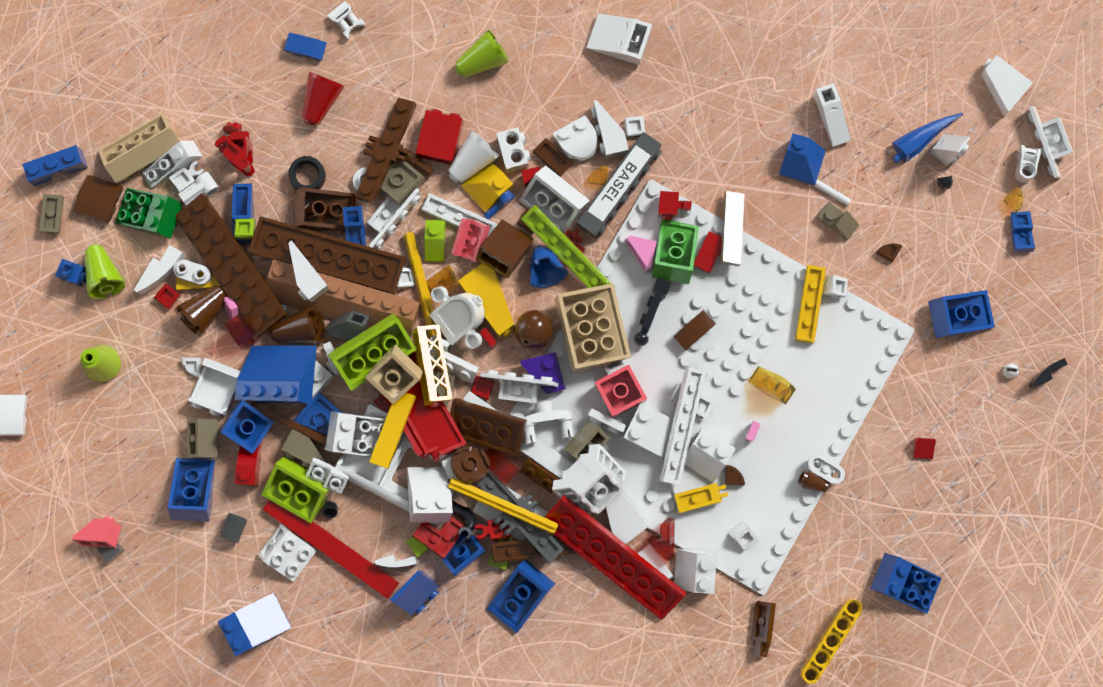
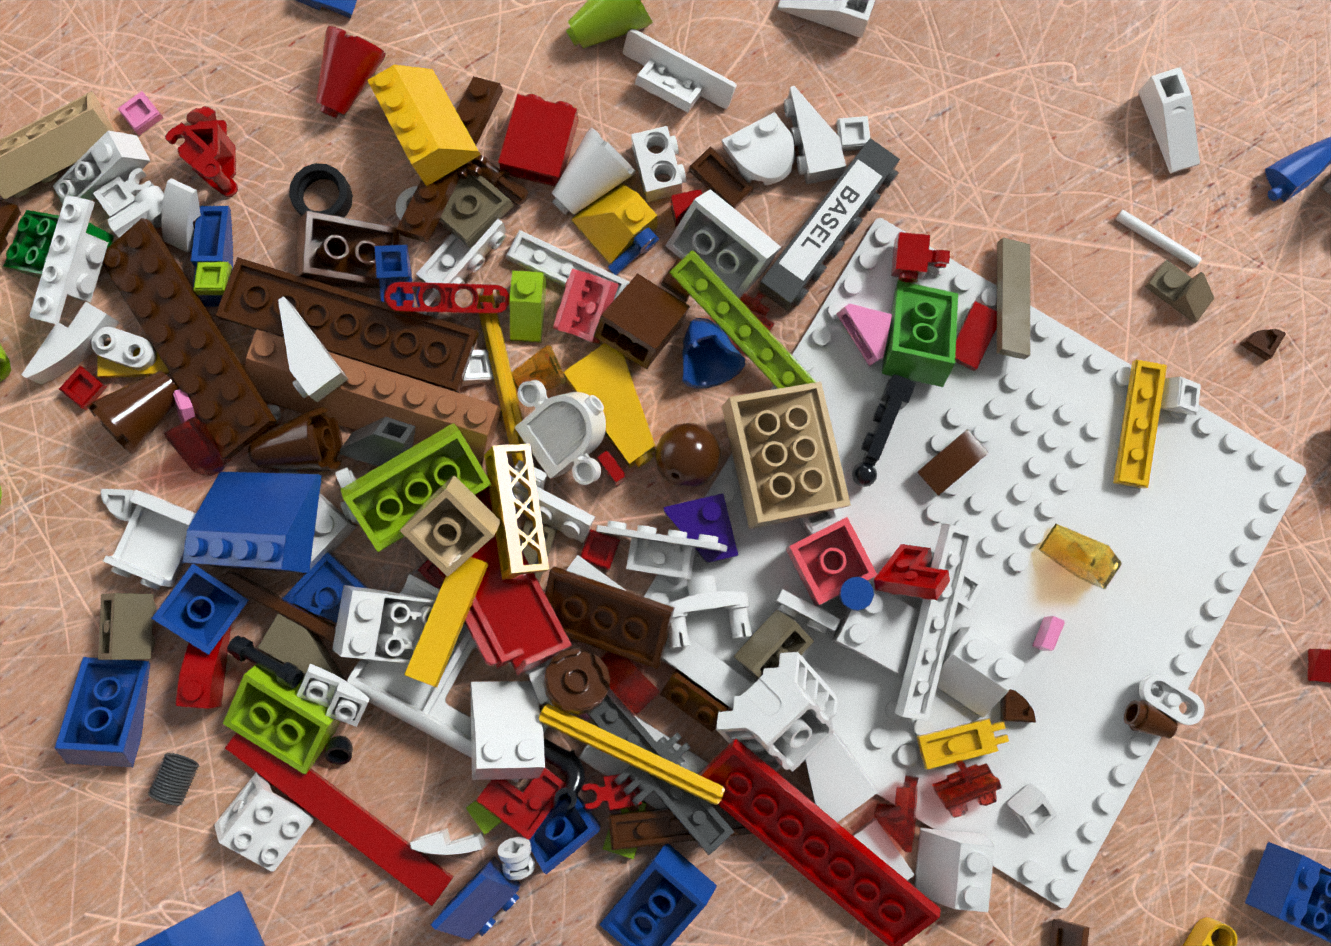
camera: 10 degrees left, 0 degrees up
(161, 222) = (71, 262): none -> white bracket
(193, 125) = (140, 113): none -> bright pink tile
(222, 189) = (179, 211): none -> white slope
(272, 450) = (286, 674): none -> black bar
(369, 128) = (423, 120): none -> yellow slope
(387, 237) = (447, 297): none -> red beam
(437, 568) = (516, 858): none -> white wheel
(521, 94) = (675, 75): none -> white bracket
(599, 176) = (795, 210): clear yellow tile -> none
(633, 409) = (856, 593): none -> blue tile
(667, 397) = (908, 574): none -> red plate
(701, 521) = (966, 785): none -> clear red hips
(802, 159) = (1123, 190): blue slope -> none

